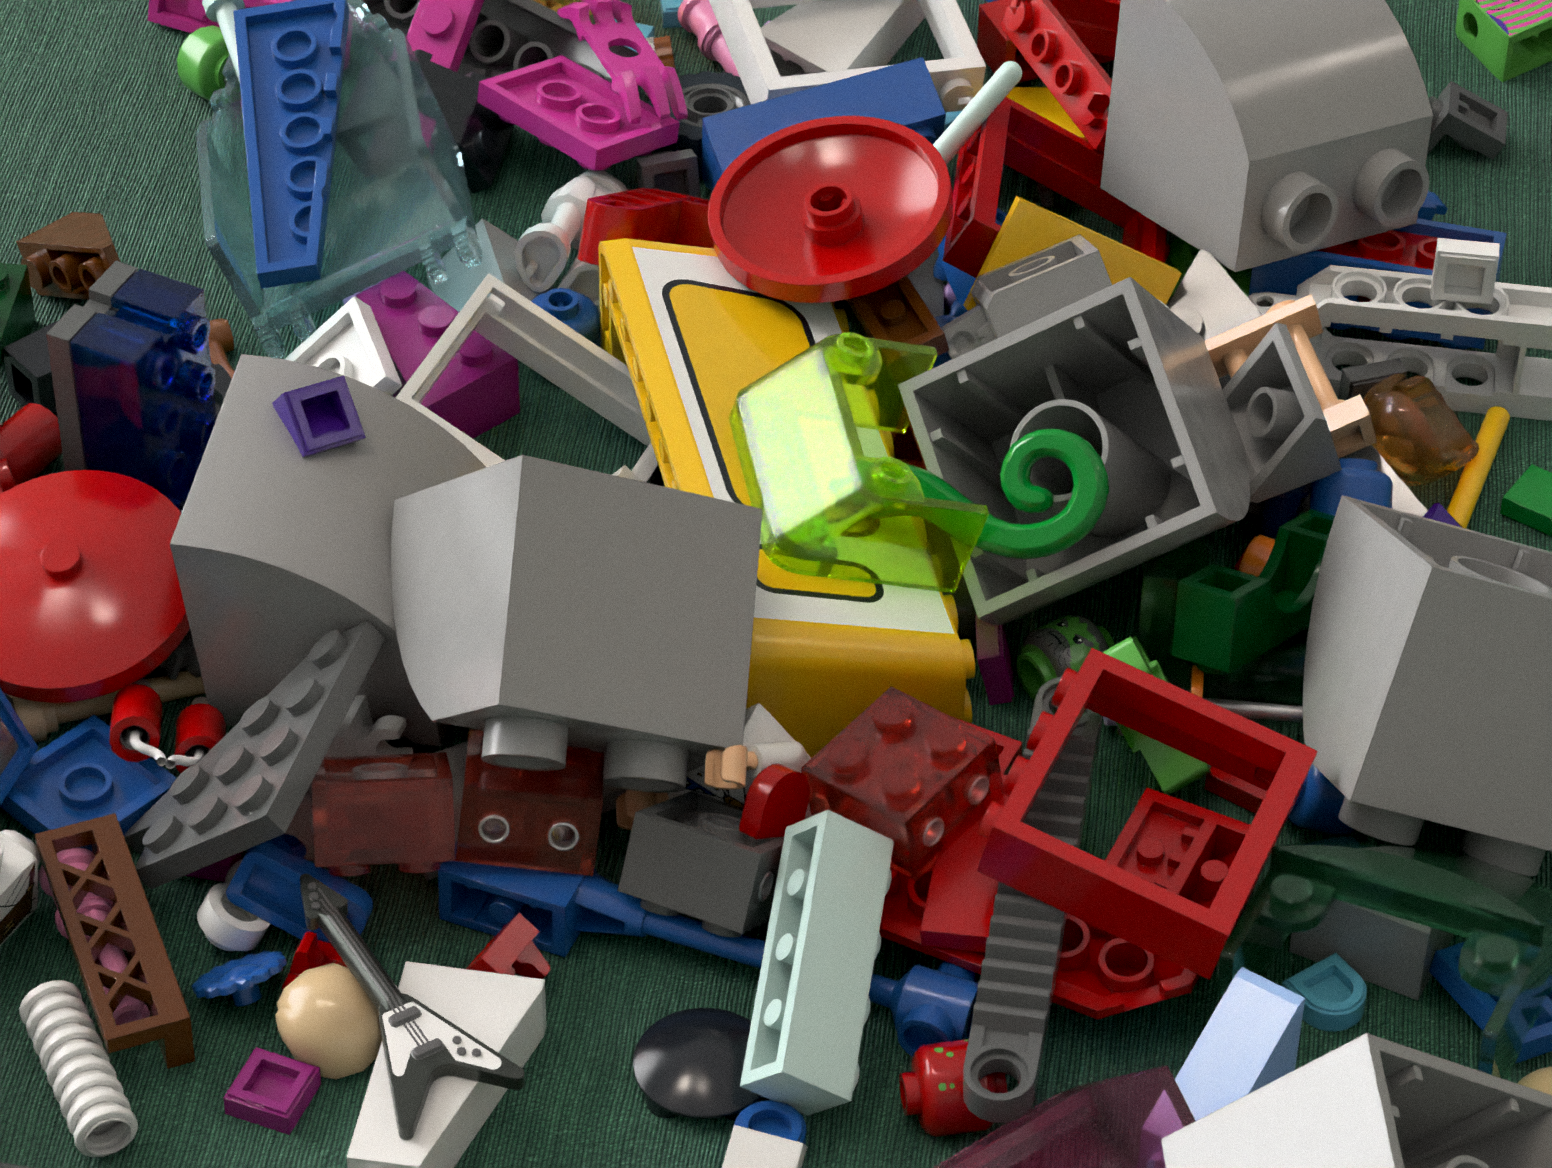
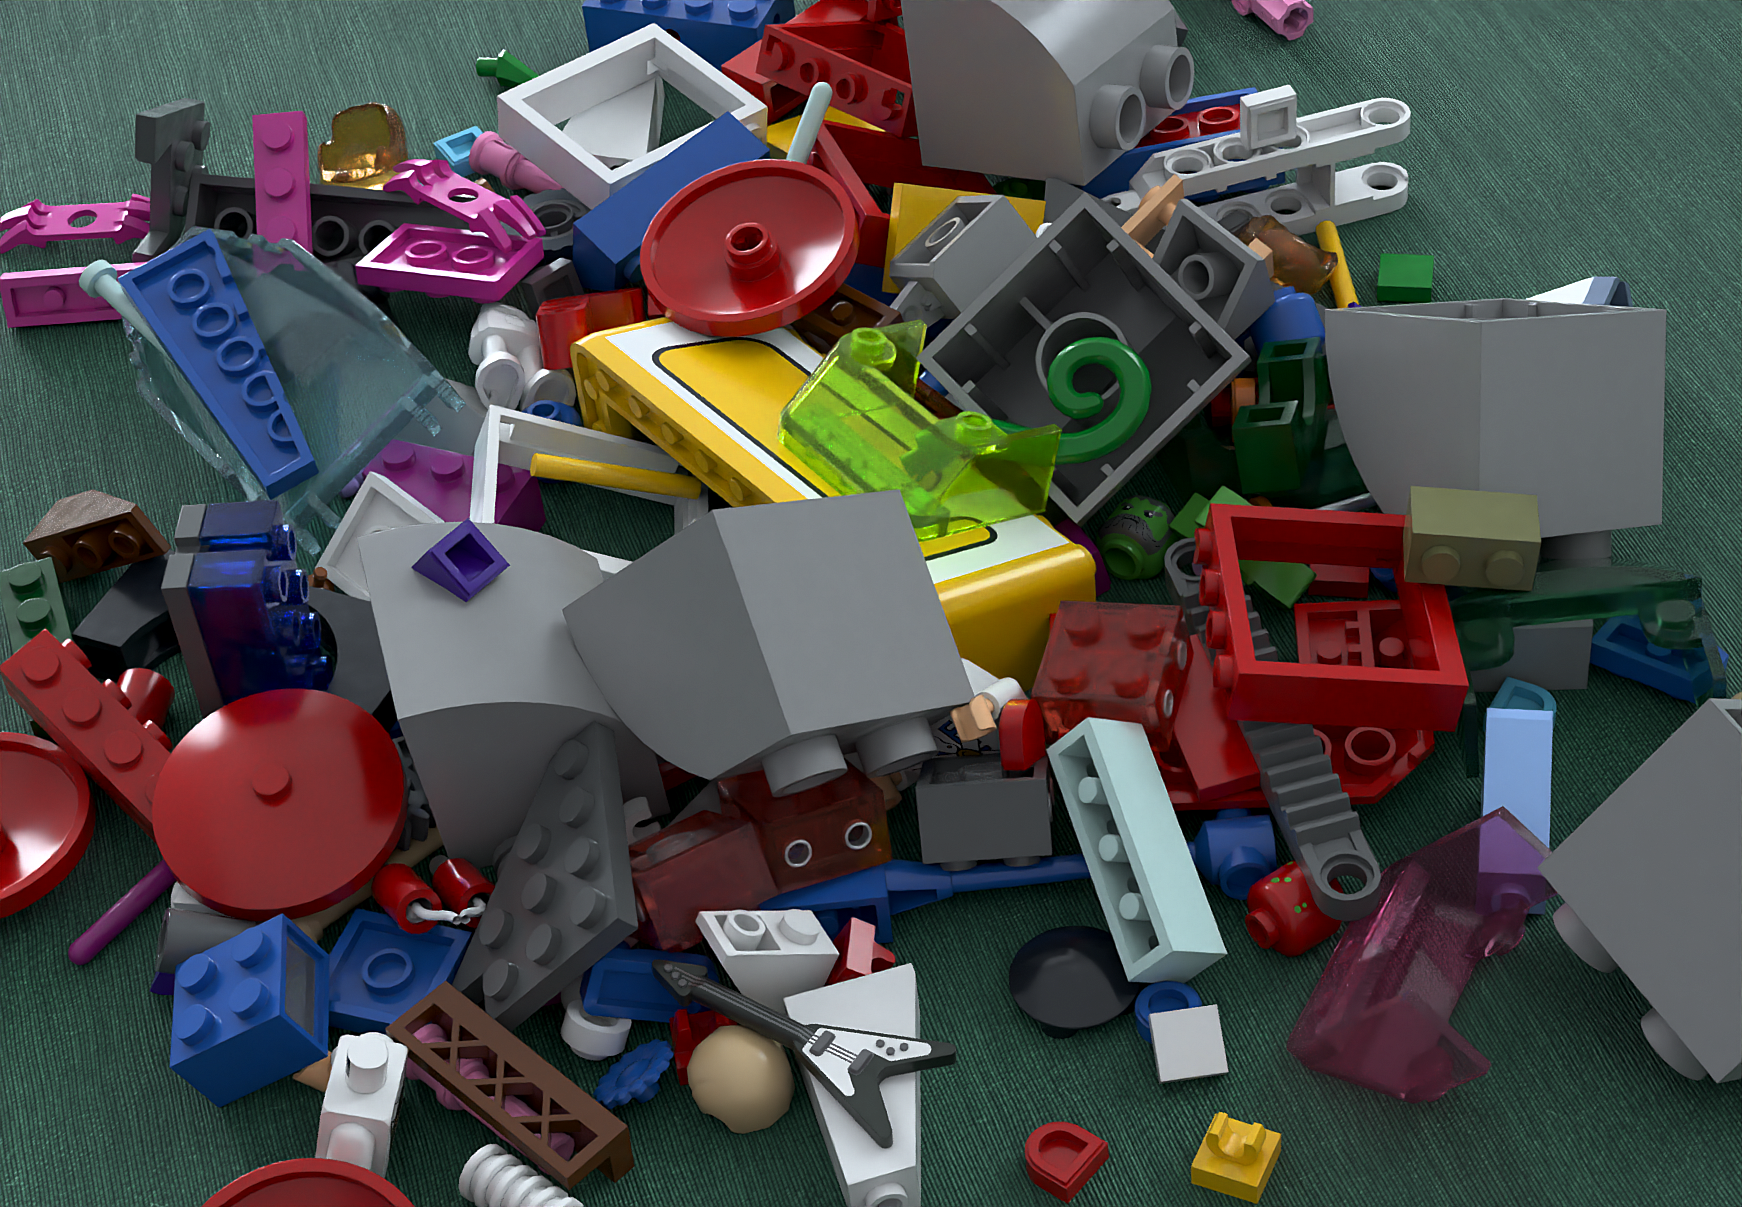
camera: 20 degrees left, 0 degrees up
(202, 61) = (97, 339): bright green head -> none
(272, 1090) = (724, 1160): magenta tile -> none
(416, 912) = (770, 952): none -> white slope
(570, 389) = (615, 476): none -> yellow bar
(1327, 789) = (1471, 538): none -> olive brick

